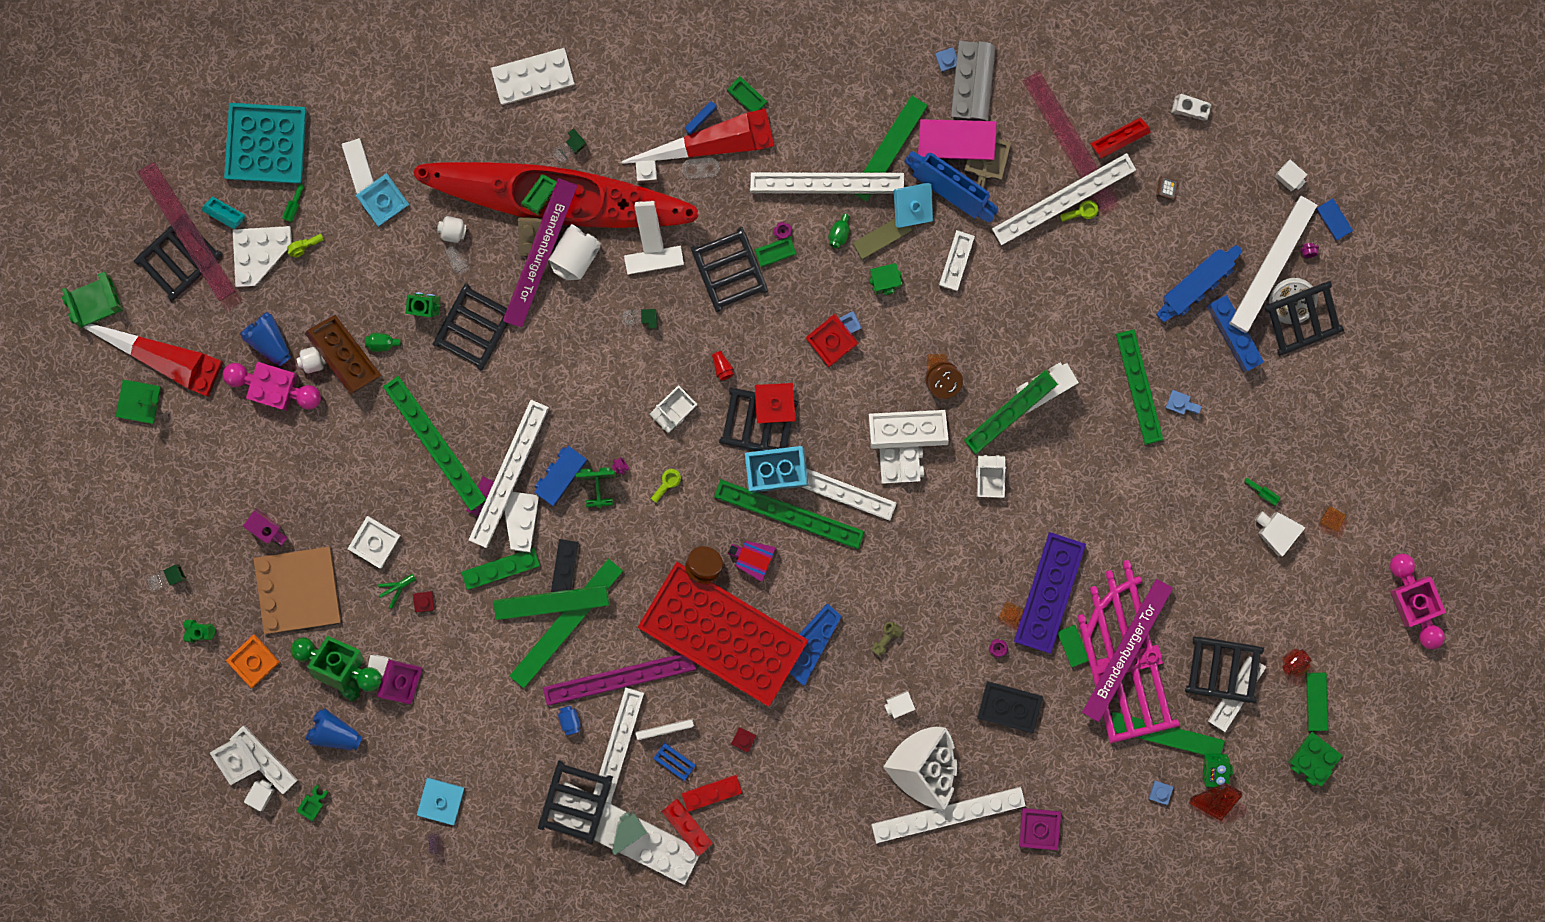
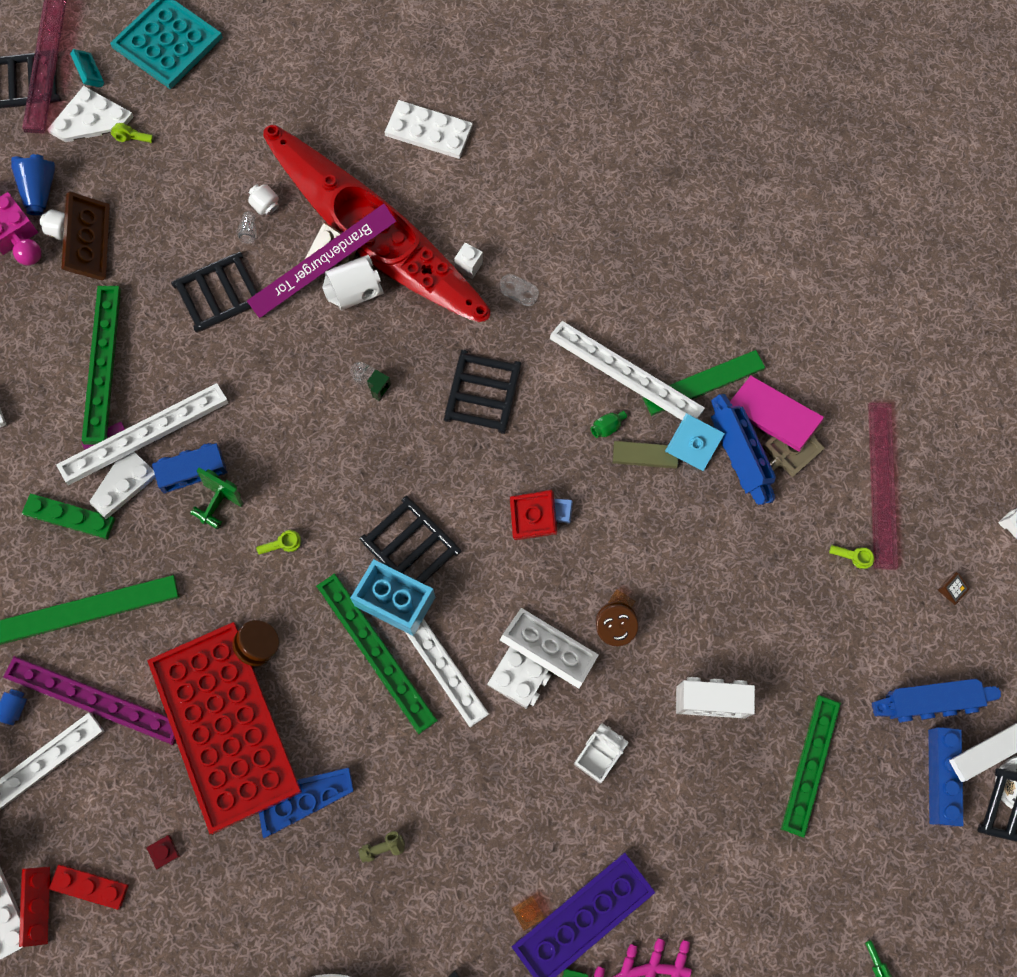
camera: 30 degrees right, 15 degrees down
(293, 205) = (148, 100): green axle -> none
(357, 164) = (226, 107): white tile -> none
(380, 342) = (128, 250): green plant -> none
(382, 199) = (224, 140): medium azure plate -> none
(423, 304) = (188, 240): green head -> none
(539, 194) = (352, 215): green tile -> none
(551, 602) = (86, 578): green tile -> none
(564, 565) = (125, 557): black plate -> none
(569, 149) = (415, 201): leg -> none
(620, 466) = (251, 497): magenta plate -> none
(649, 226) = (435, 301): white tile -> none
(653, 261) = (420, 339): white tile -> none
(664, 729) = (93, 783): white tile -> none
(673, 409) = (339, 478): white piece -> none
(687, 770) = (69, 829): blue tile -> none
(692, 126) = (549, 248): blue tile -> none
(722, 366) = (412, 473): red cone -> none
(739, 134) = (571, 282): red plate -> none
(747, 95) = (604, 259): green tile -> none
(753, 558) = (308, 671): torso -> none
(775, 252) = (536, 403): green tile -> none
(775, 403) = (437, 535): red plate -> none
(782, 226) = (555, 384): magenta plate -> none
(885, 279) = (623, 492): green head -> none
(899, 704) = (345, 930): white brick -> none
(946, 59) = (808, 342): medium blue plate -> none
(956, 260) = (702, 521): white plate -> none
(973, 81) = (823, 371): light grey brick -> none
(998, 643) = (490, 949): magenta plate -> none
(1011, 412) = (666, 697): green tile -> none
(1064, 199) = (845, 531): white plate -> none
(1120, 138) = (935, 512): red plate -> none
(1180, 402) = (844, 811): medium blue plate -> none

